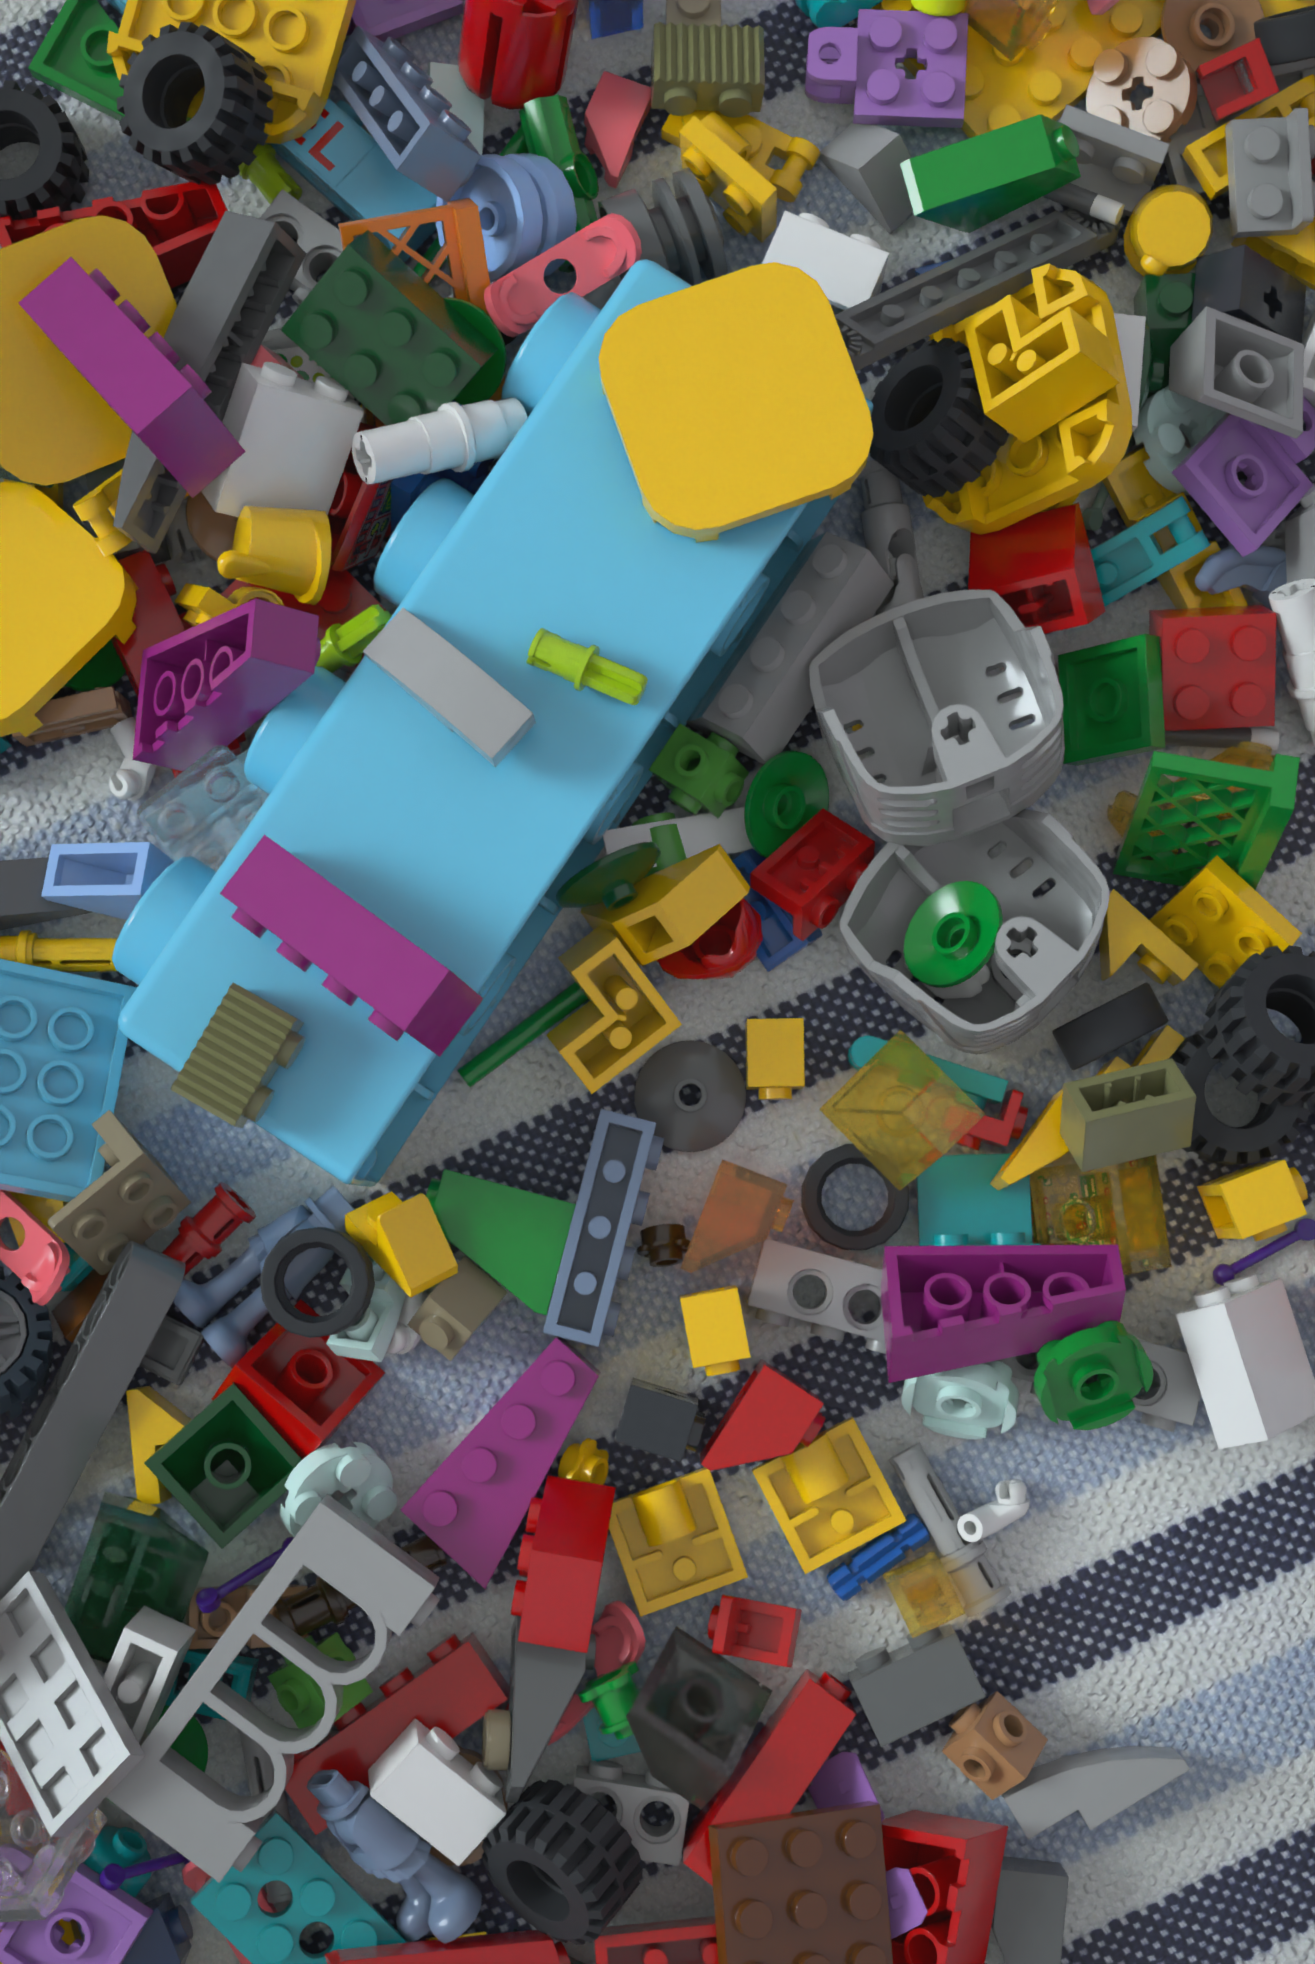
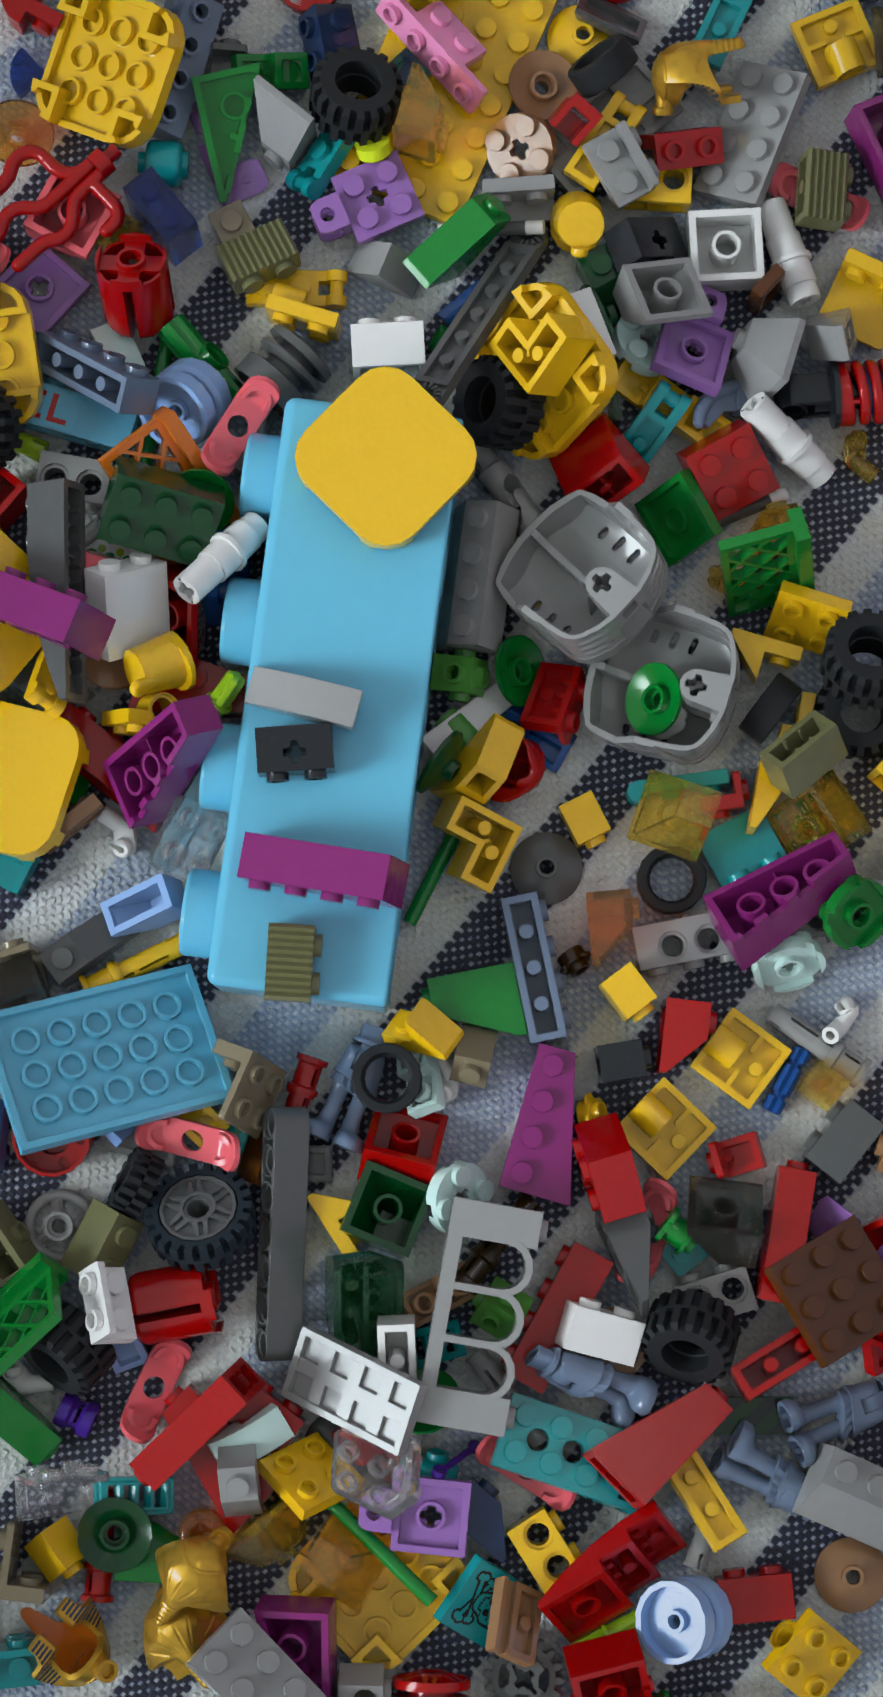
camera: 30 degrees left, 0 degrees up
(210, 1598) = (413, 1293): dark purple hinge -> none
(374, 729) = (277, 740): none -> black brick
(496, 1739) = (619, 1287): dark tan tile -> none
(585, 667) = (375, 650): lime axle -> none
(614, 122) = (216, 311): coral slope -> none

